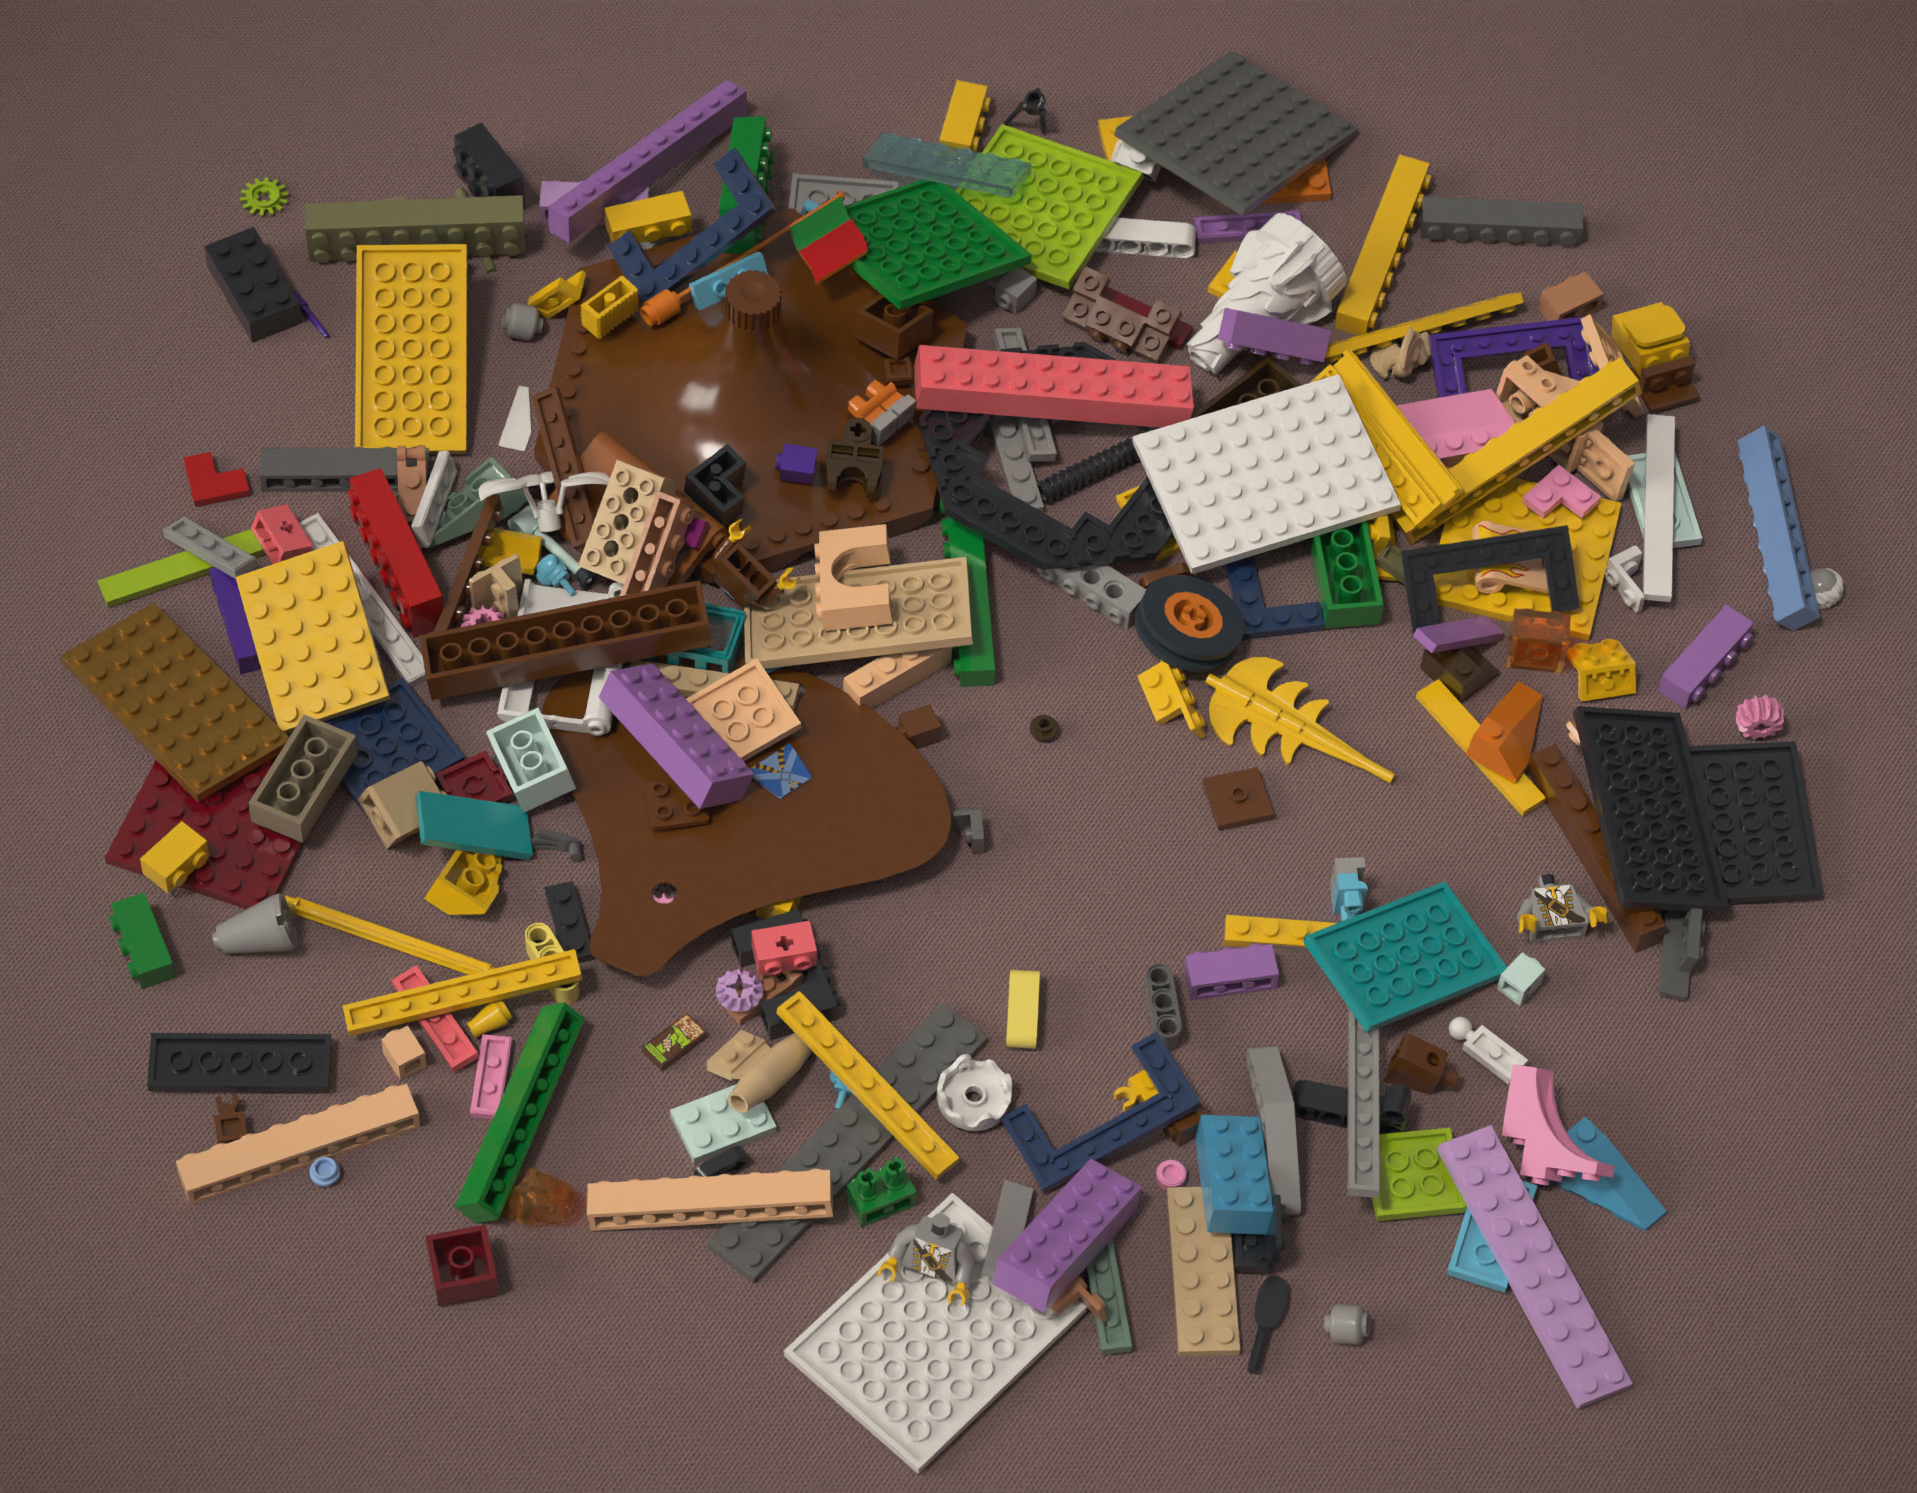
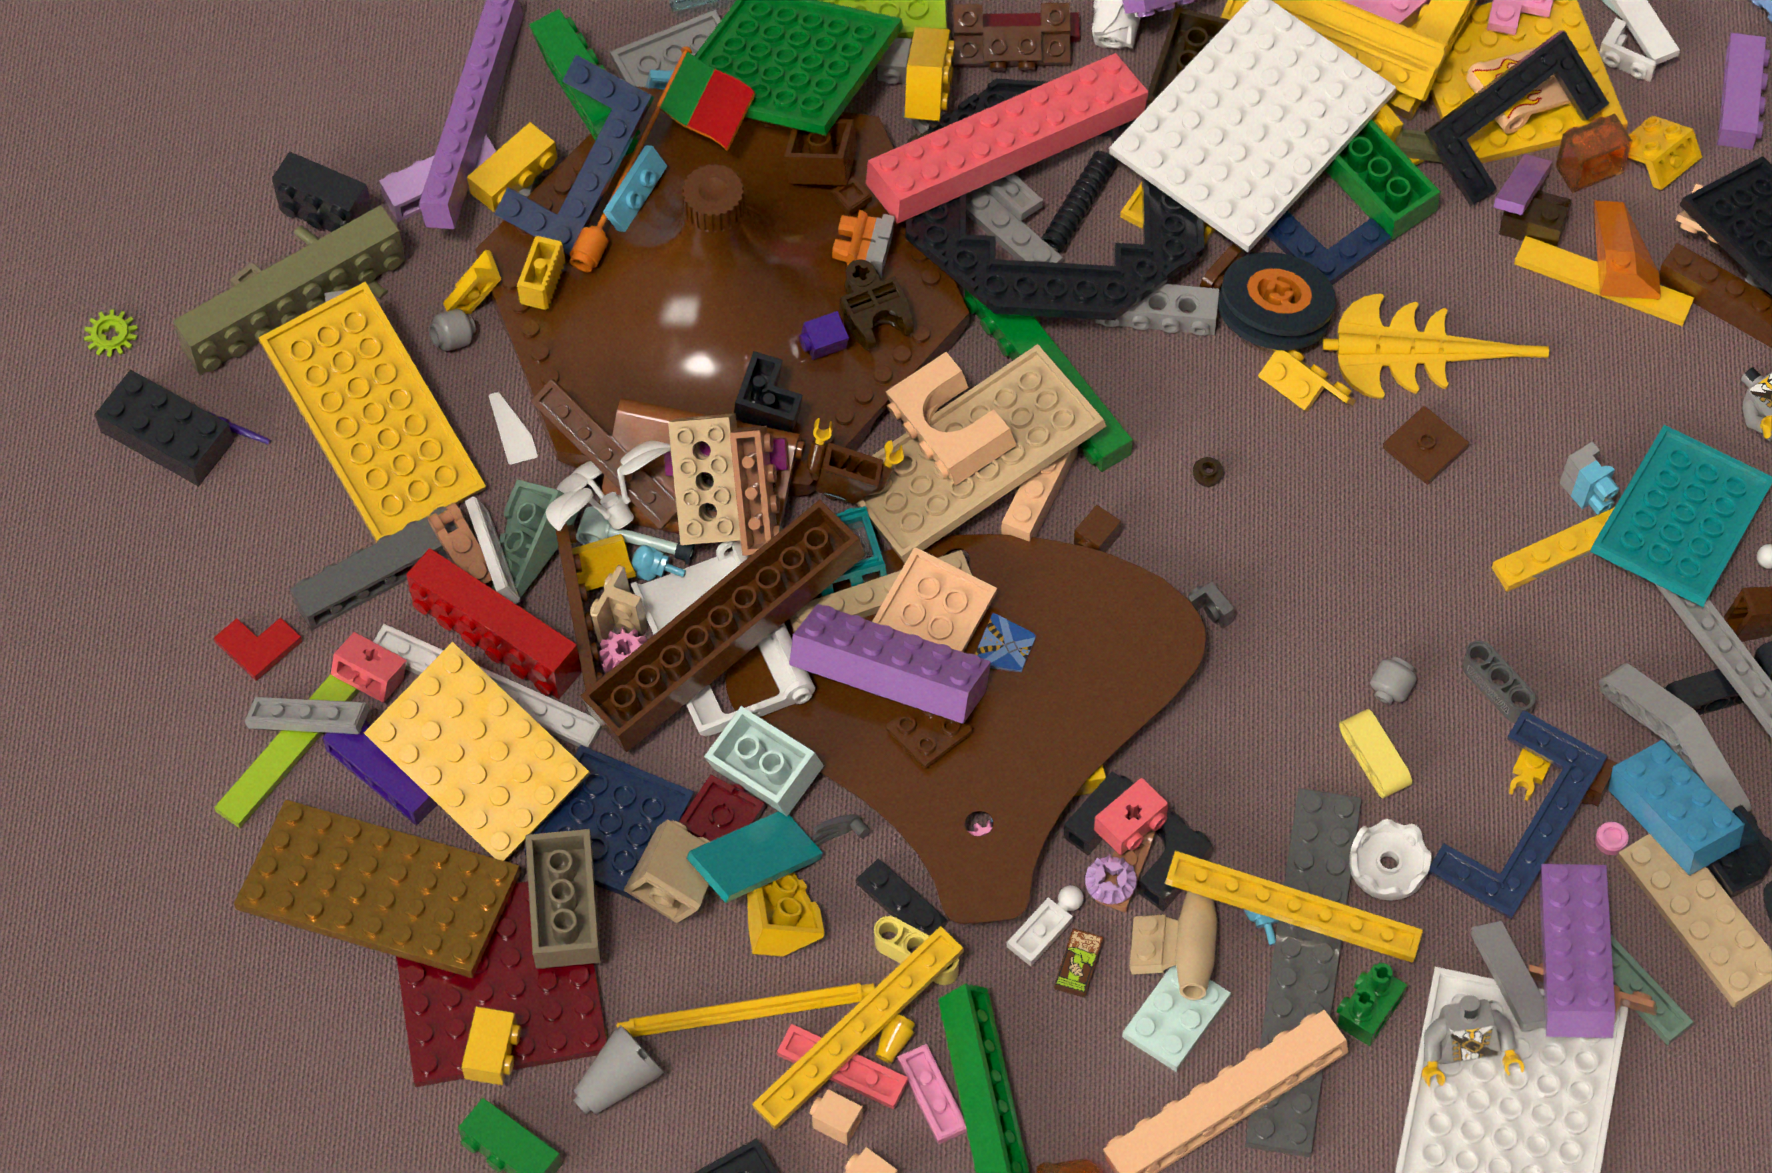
camera: 25 degrees left, 5 degrees up
(667, 999) = (1045, 925): none -> white plate
(728, 1162) = (1209, 1059): black beam -> none
(1026, 308) = (929, 73): none -> yellow brick
(1076, 961) = (1393, 680): none -> light grey head
(1231, 971) = (1534, 613): medium lavender brick -> none

